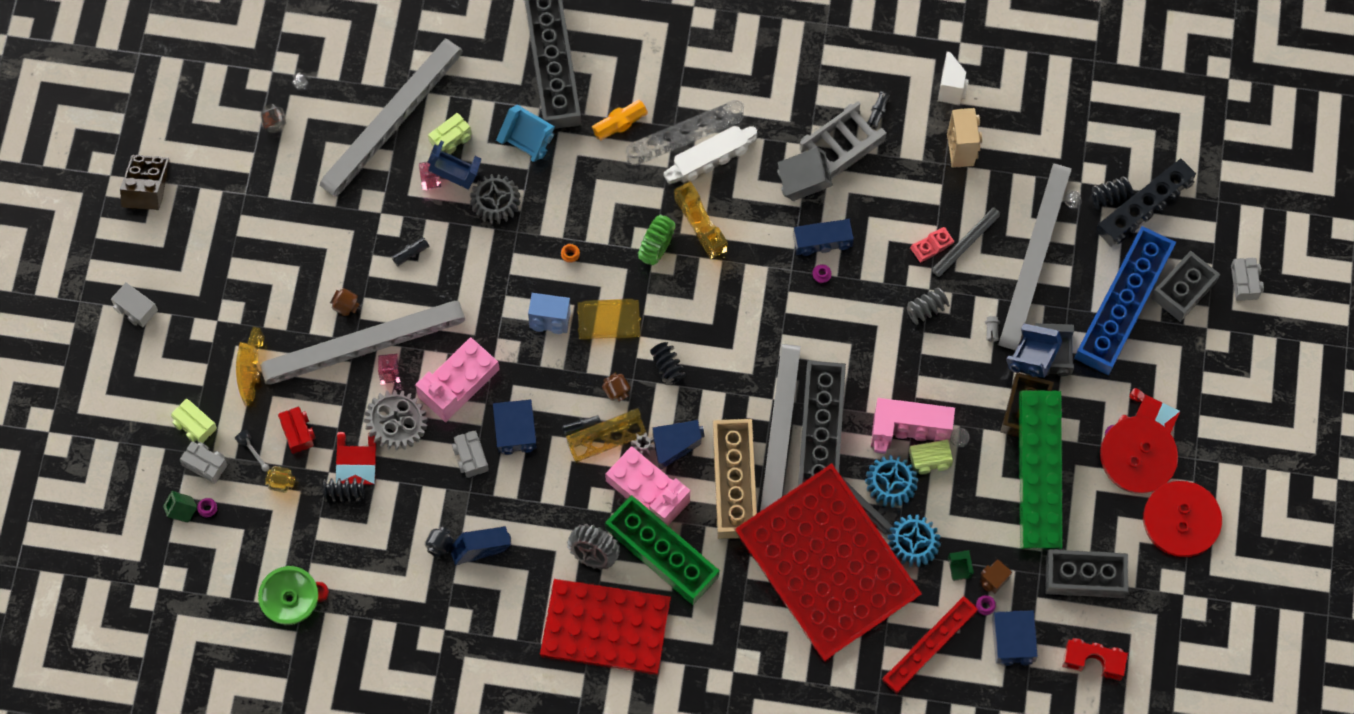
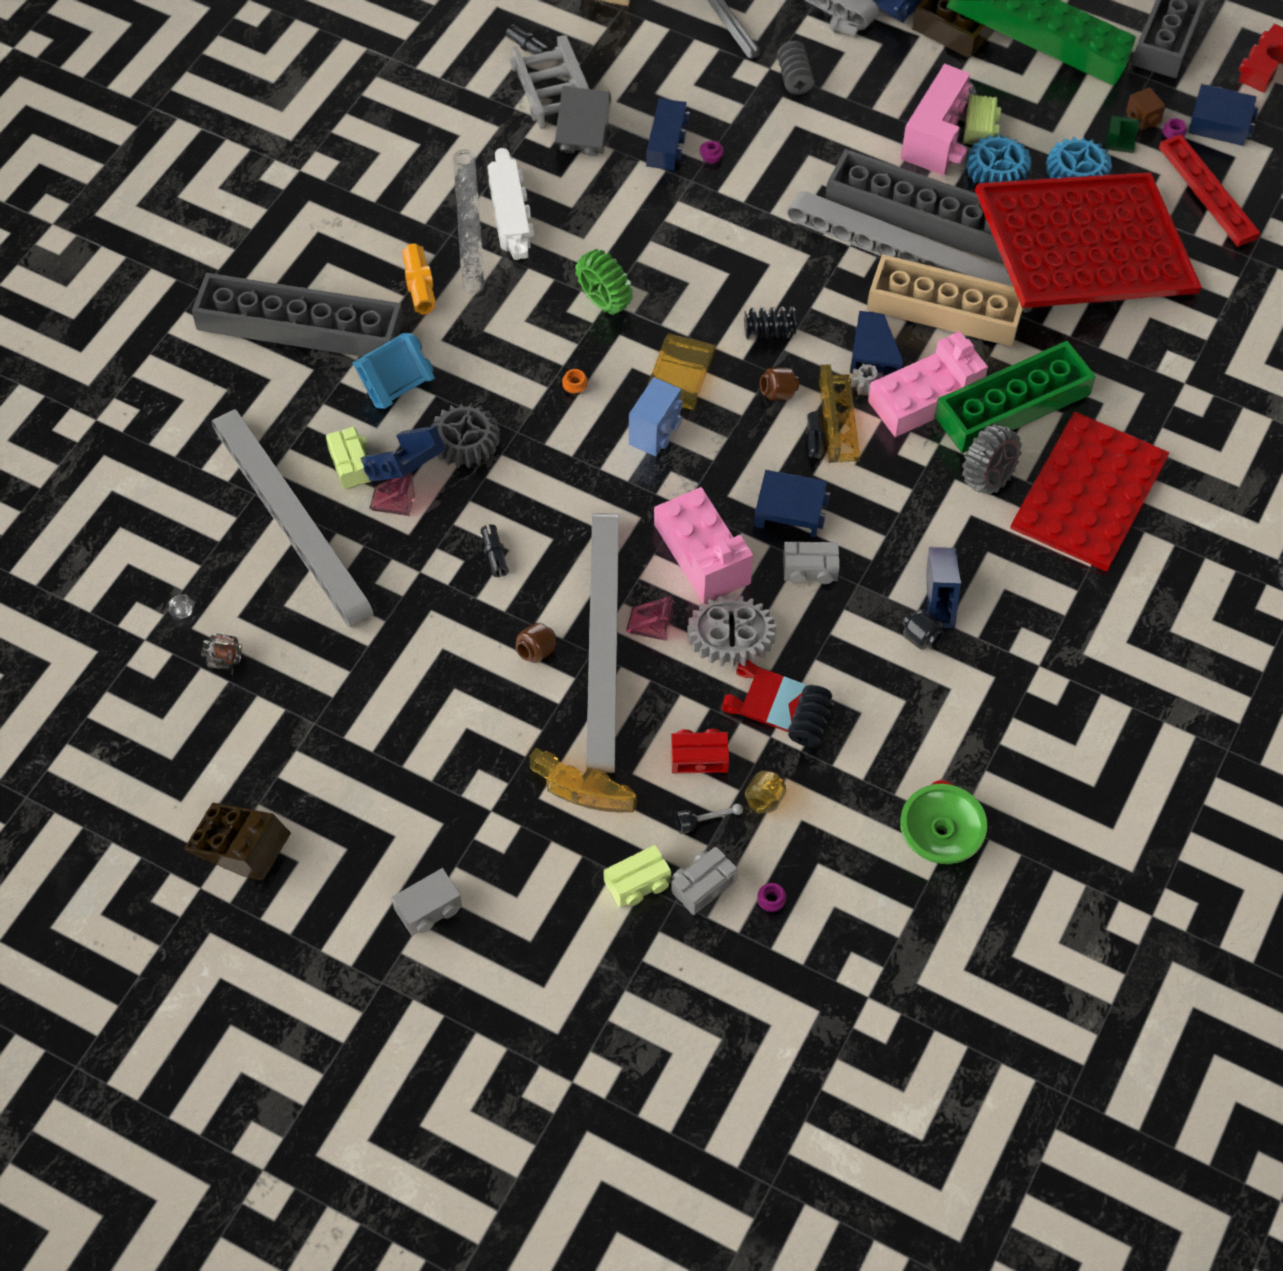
camera: 70 degrees left, 10 degrees down
(179, 506) = (759, 930): dark green panel -> none
(705, 230) = (622, 234): clear yellow arch -> none
(932, 245) = (717, 46): coral slope -> none

